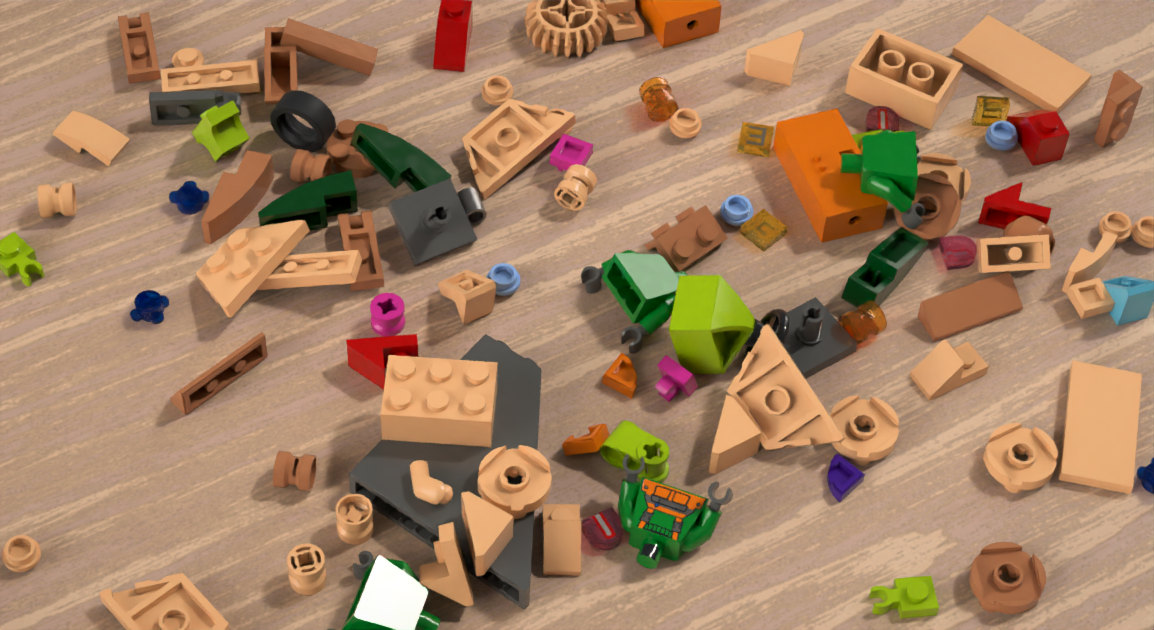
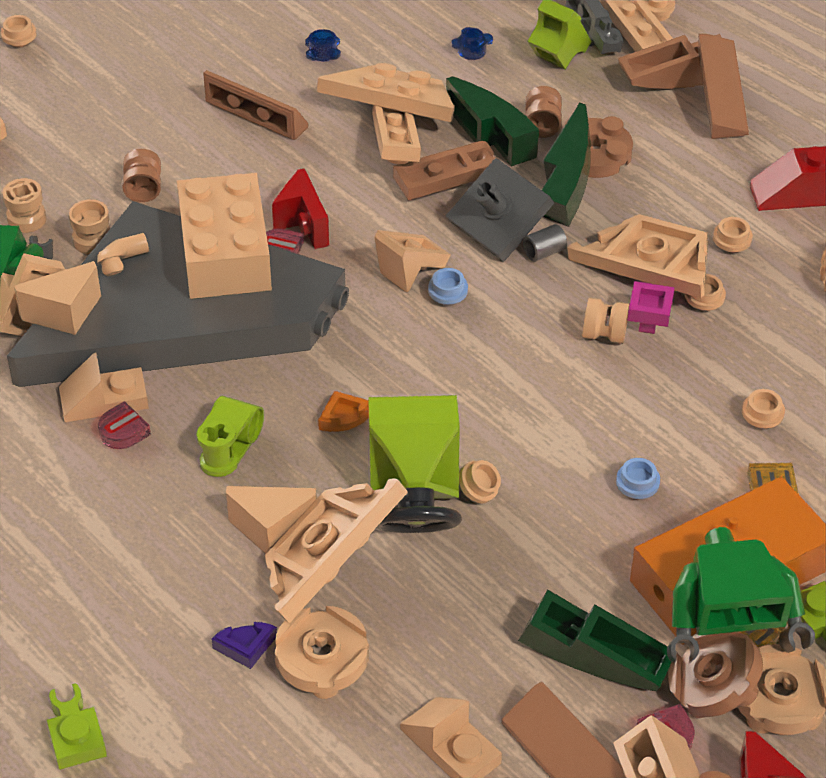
camera: 80 degrees right, 5 degrees down
(237, 195) = (483, 65): nougat slope -> none
(311, 110) = (595, 81): black tyre -> none
(391, 322) = (365, 205): dark pink wheel -> none
(517, 498) = (138, 333): light nougat plate -> none
(587, 443) = (231, 387): orange tile -> none
(642, 287) = (483, 394): green torso -> none
(658, 99) = (790, 371): clear orange wheel -> none
(665, 518) = (138, 463): torso -> none
(674, 379) = (345, 451): dark pink tile -> none
(688, 239) = (568, 435): nougat bracket -> none
(763, 230) = (621, 513): clear yellow tile -> none
(816, 338) = (456, 581): dark grey tile -> none
(865, 321) = (489, 625): clear orange wheel -> none

